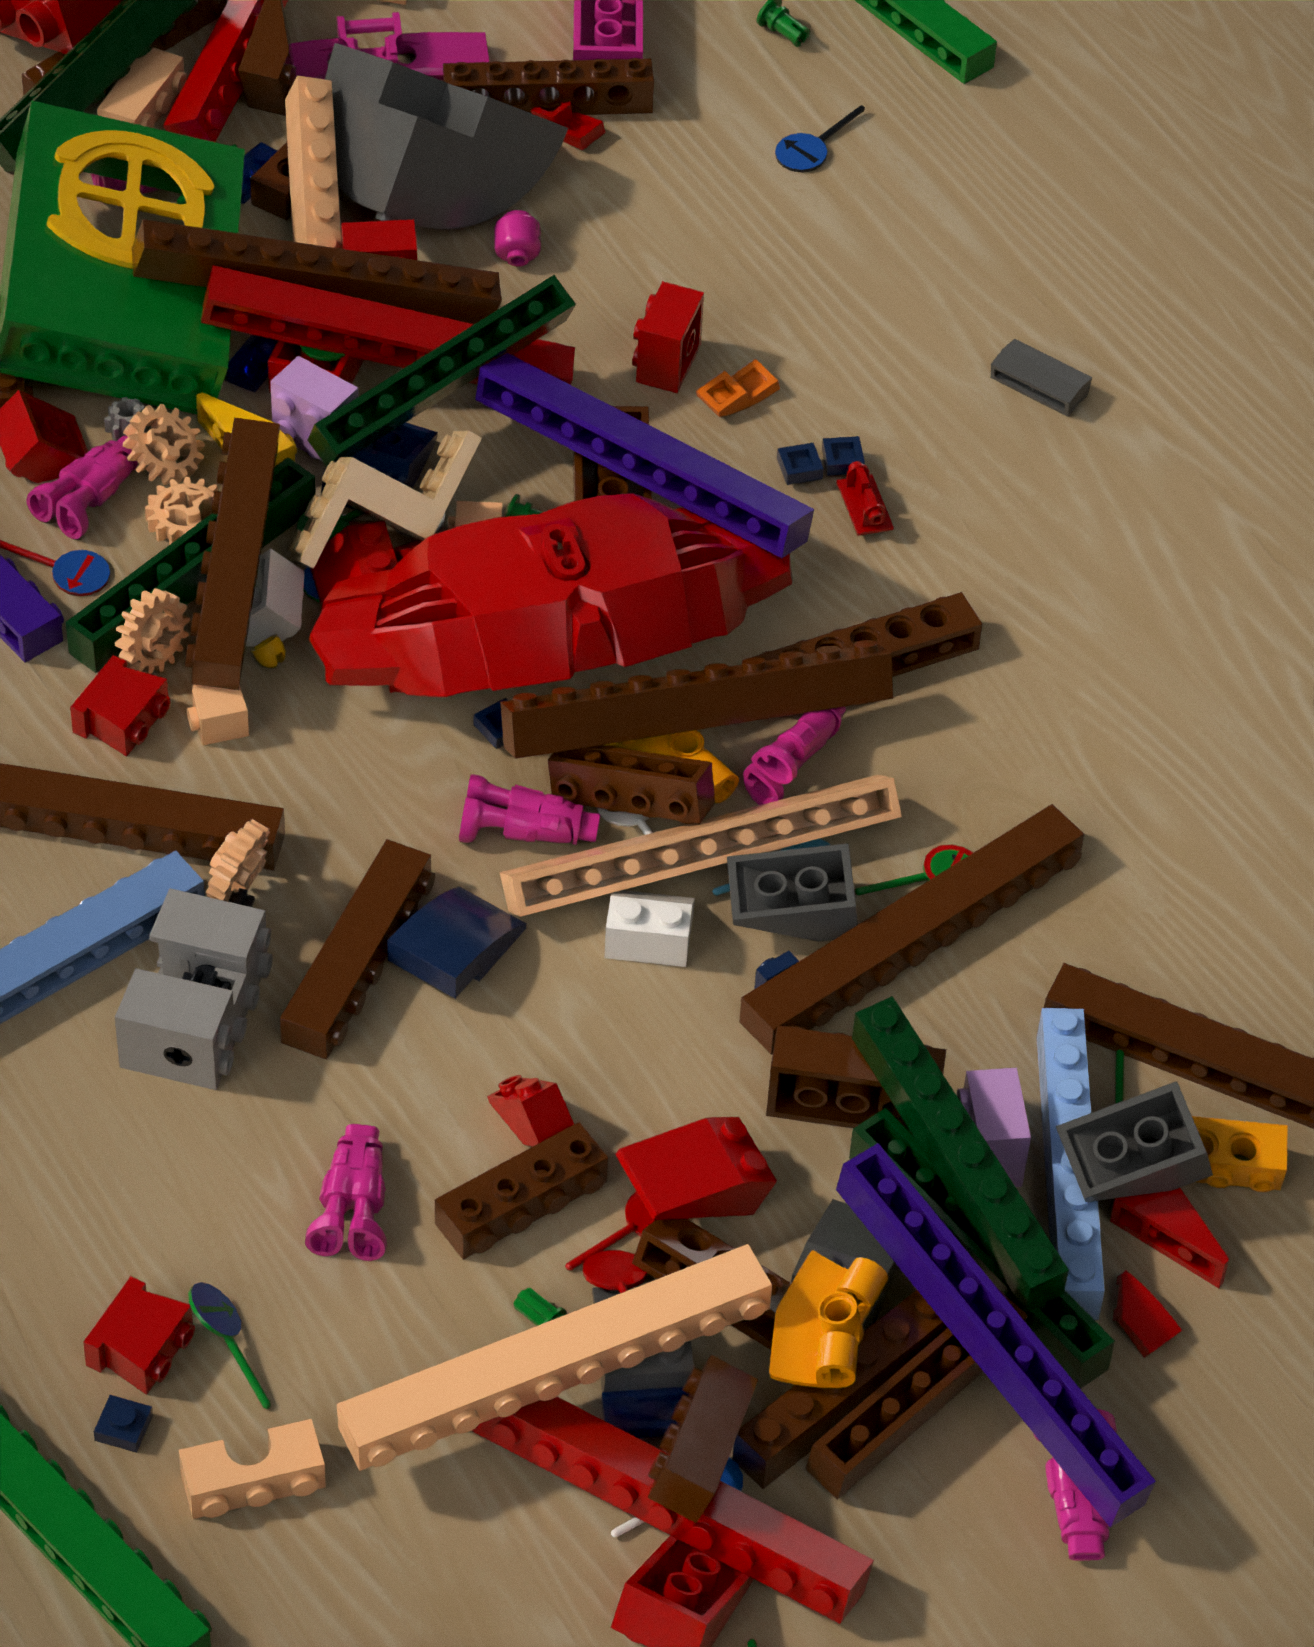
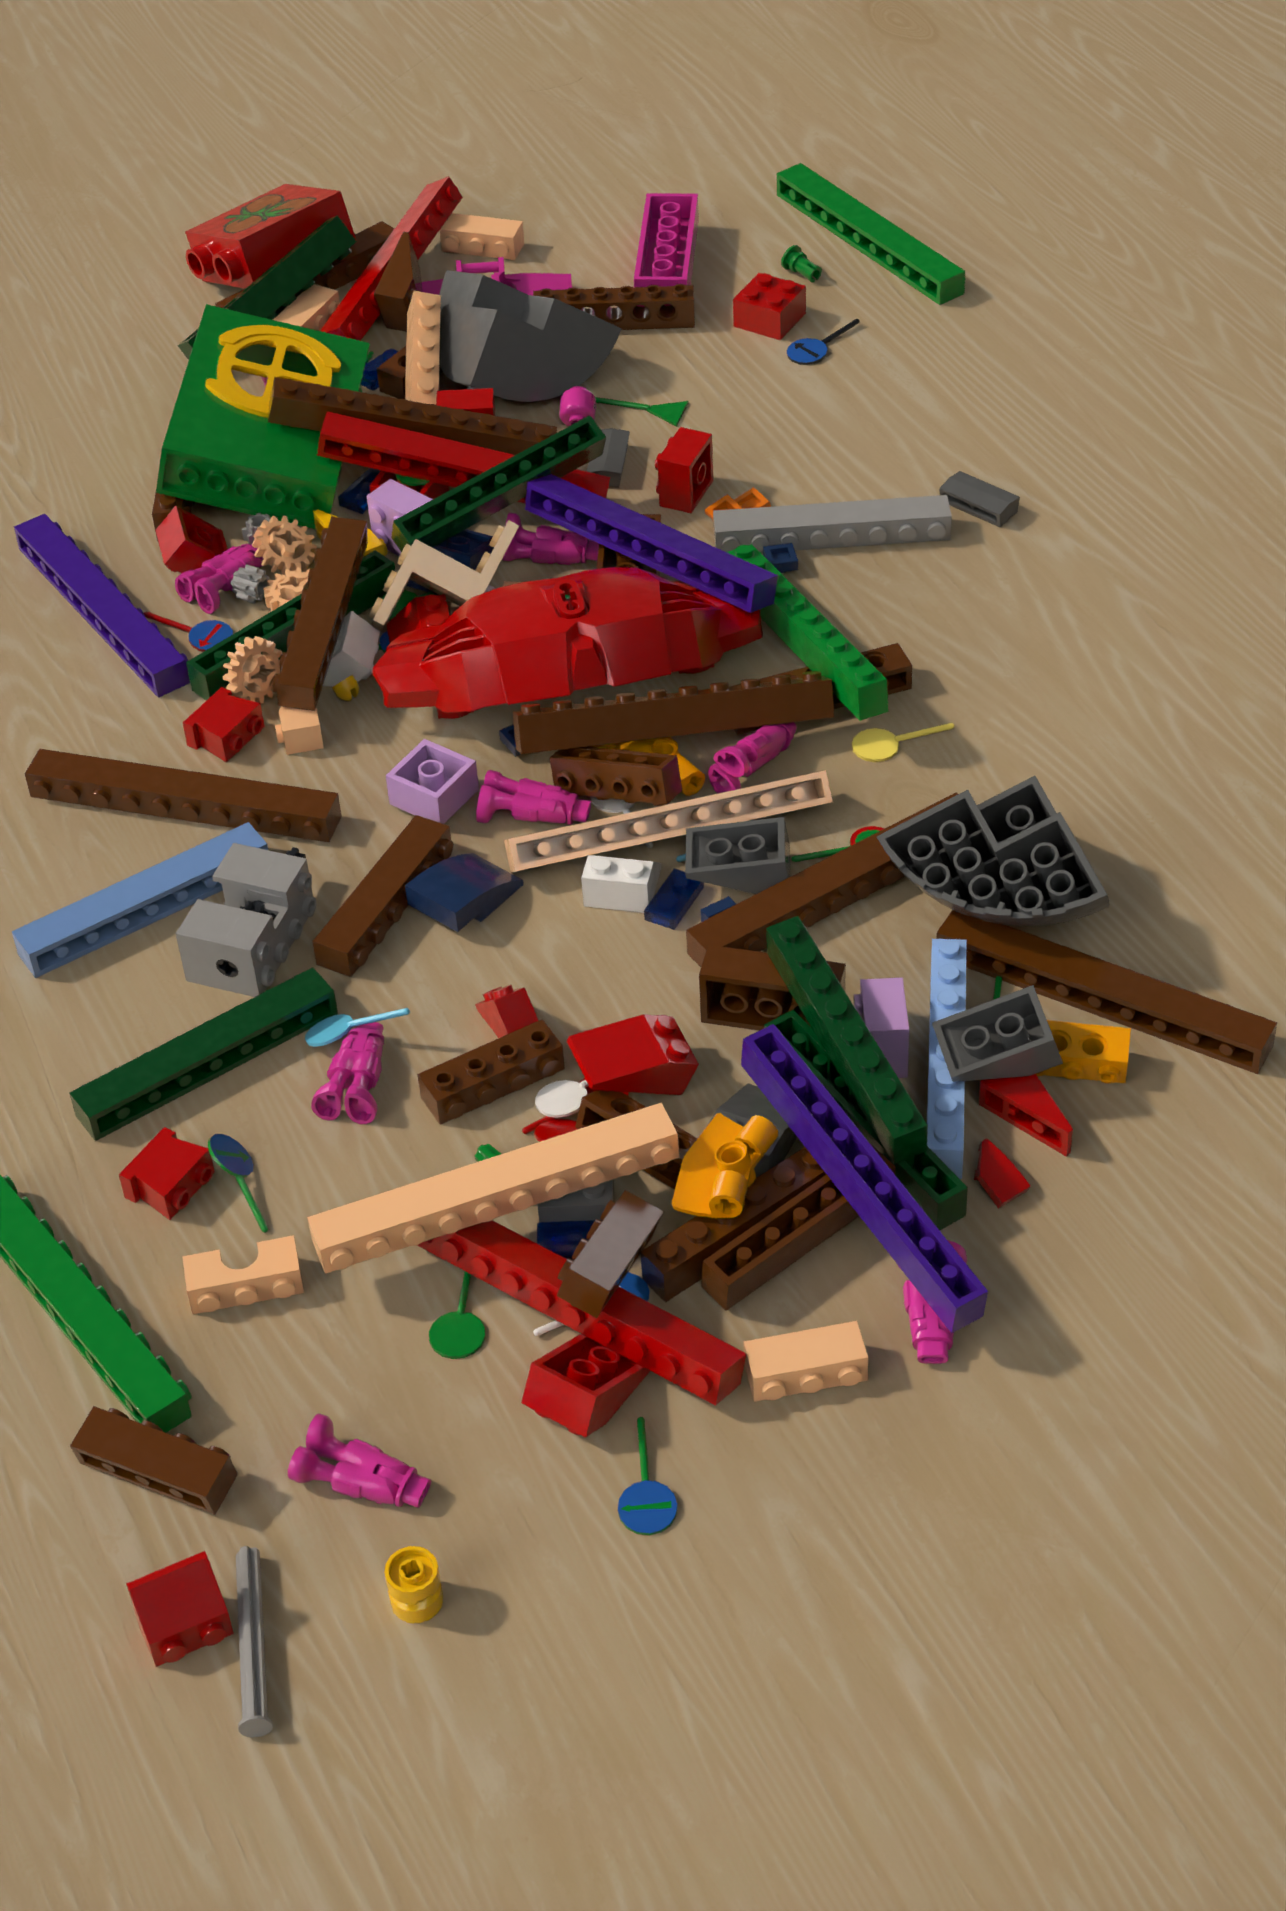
camera: 10 degrees right, 5 degrees down
(123, 1423) = (146, 1240): dark blue plate -> none
(125, 499) = (249, 583): none -> light grey gear
(160, 1171) = (203, 1053): none -> dark green brick
(238, 861) = (294, 825): light nougat gear -> none
(322, 1131) = (339, 1025): none -> medium azure piece
(400, 791) = (432, 782): none -> lavender brick
(507, 441) = (549, 545): none -> dark pink piece
(519, 1535) = (457, 1332): none -> green piece
(574, 329) = (613, 456): none -> dark grey piece
(581, 128) = (634, 337): red slope -> none
(609, 1223) = (561, 1098): none -> white piece
(632, 241) = (668, 412): none -> green piece
(714, 949) = (673, 900): none -> clear blue plate
(749, 87) = (769, 306): none -> red brick
(840, 453) = (815, 553): dark blue plate -> none
(864, 501) = (829, 583): red hinge -> none
(866, 594) = (821, 644): none -> green brick
(873, 413) = (835, 524): none -> light grey brick
(940, 1564) = (806, 1361): none -> light nougat brick
(948, 730) = (881, 745): none -> light yellow piece
(1121, 907) = (999, 859): none -> dark grey brick

